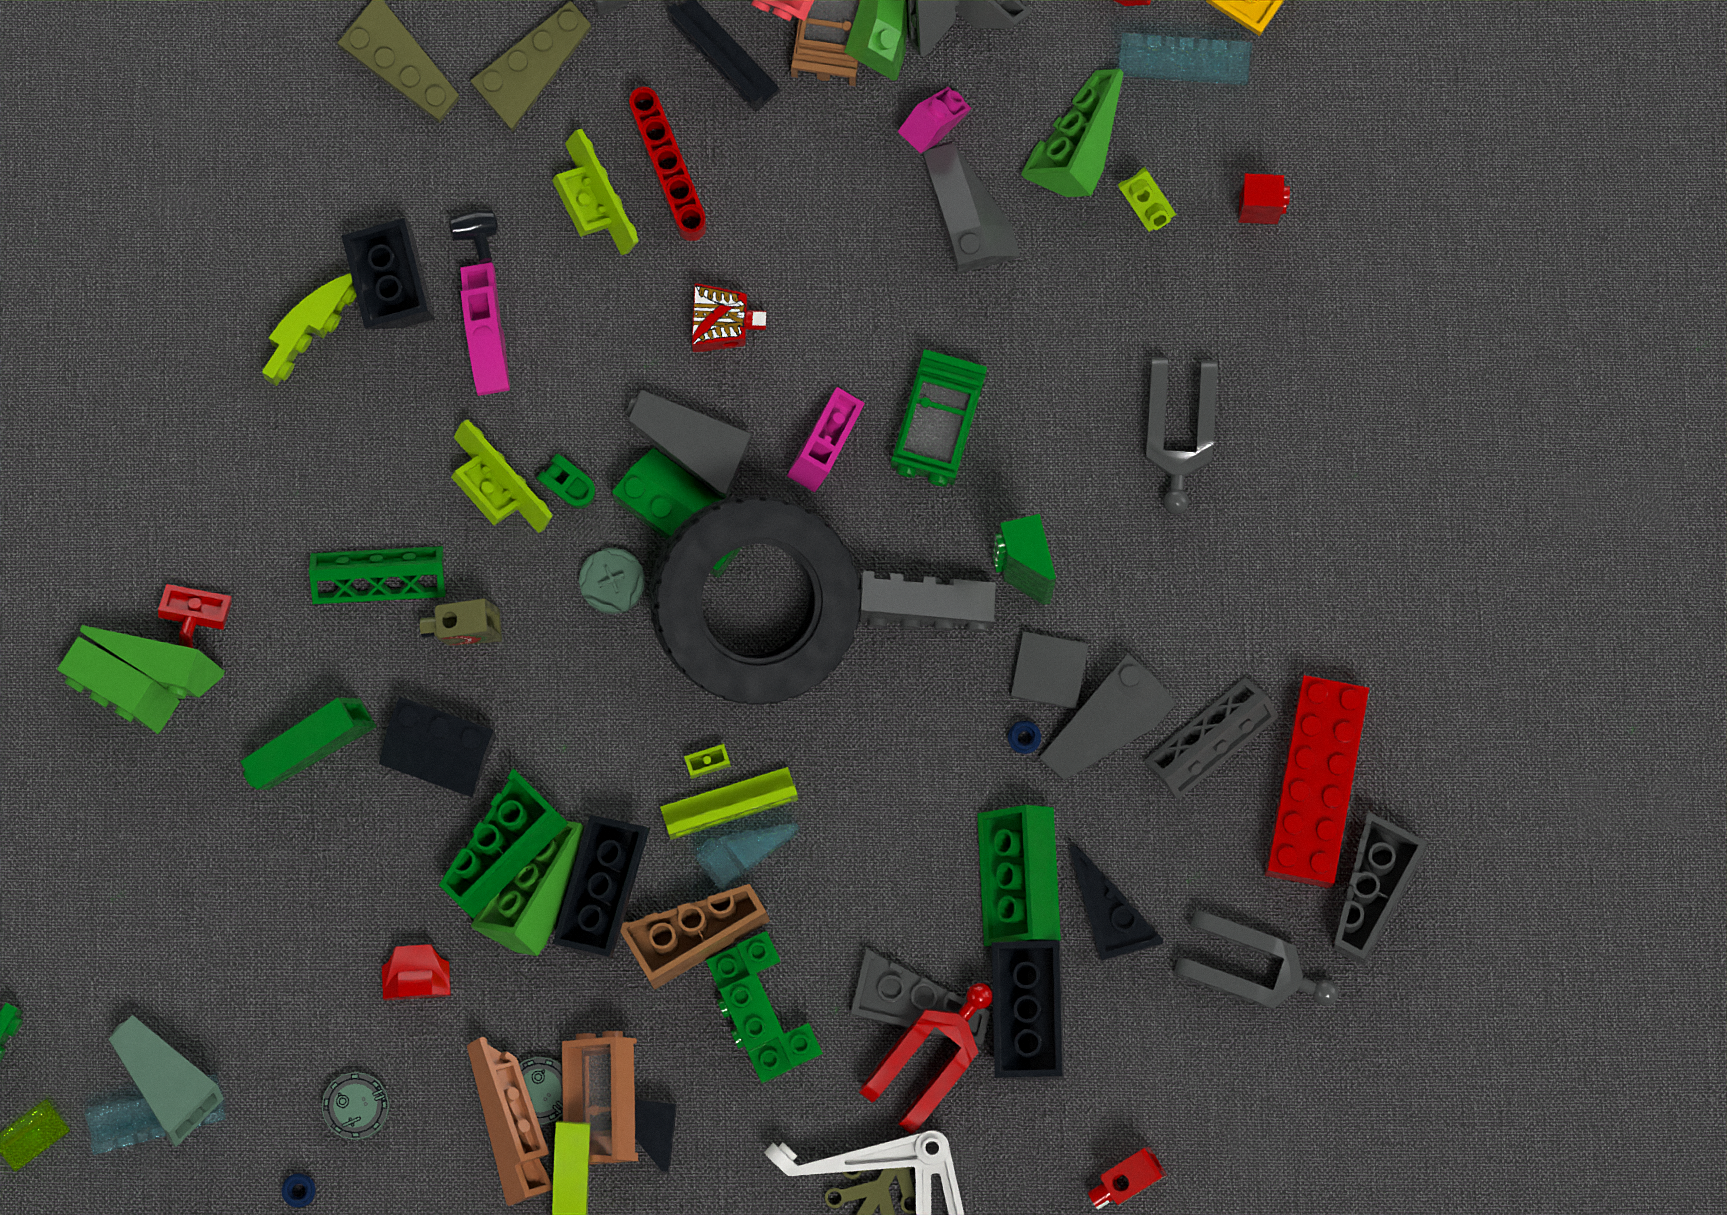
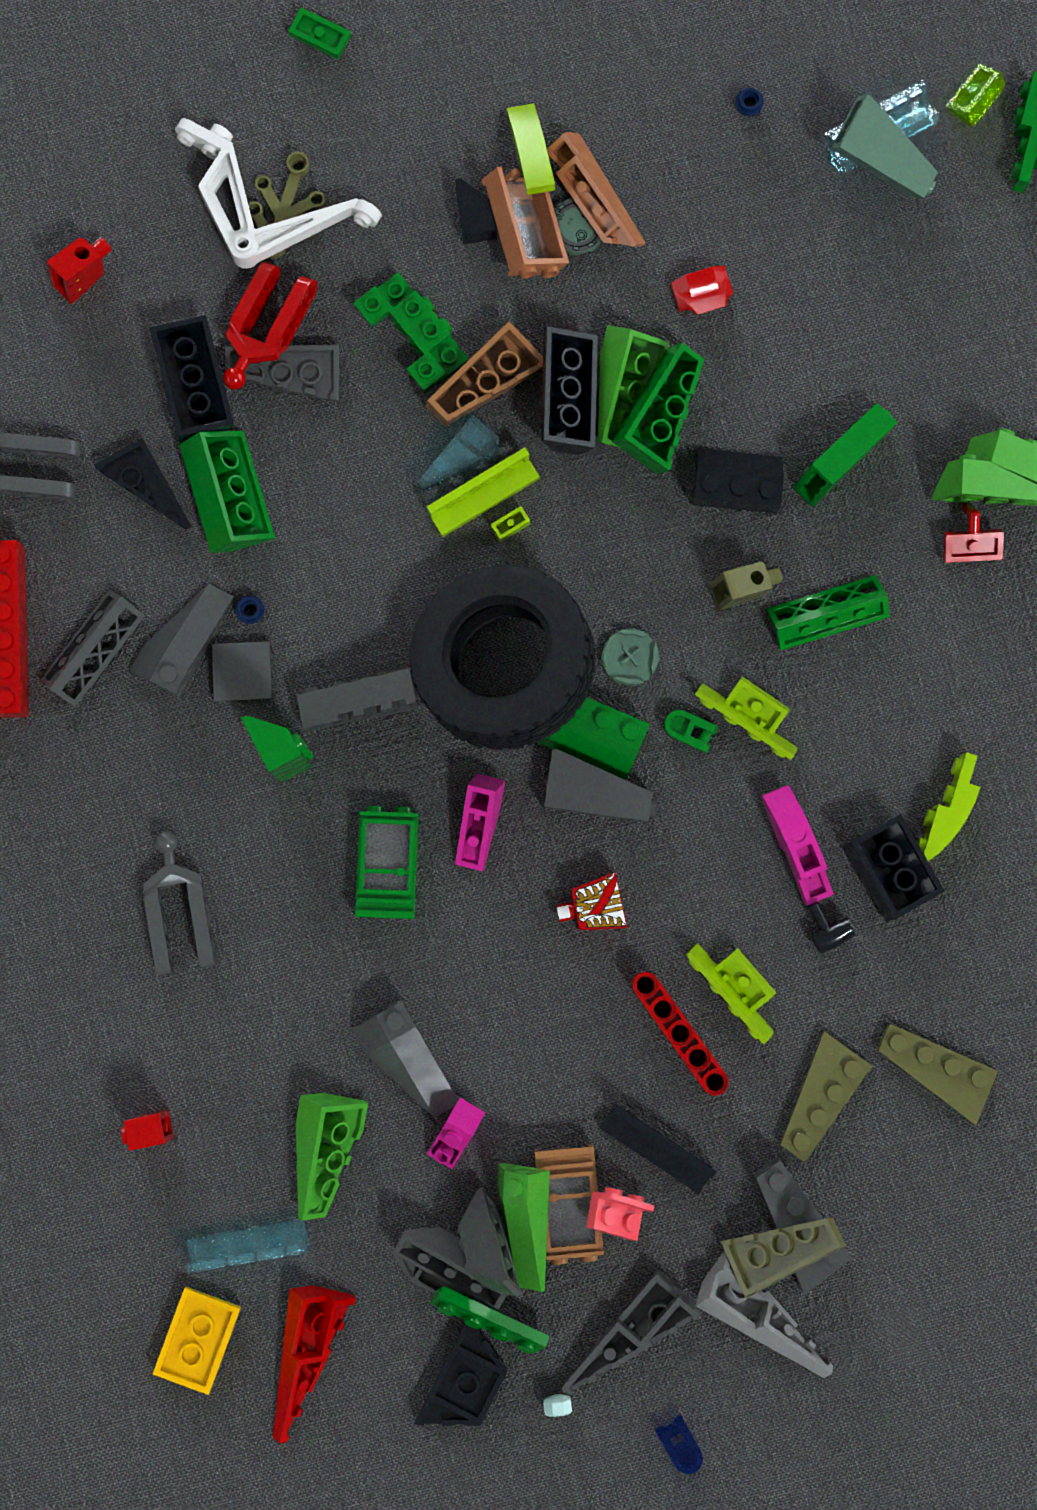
camera: 165 degrees right, 5 degrees up
(355, 1106) = (722, 178): tile -> none
(1147, 200) = (249, 1103): lime hips -> none

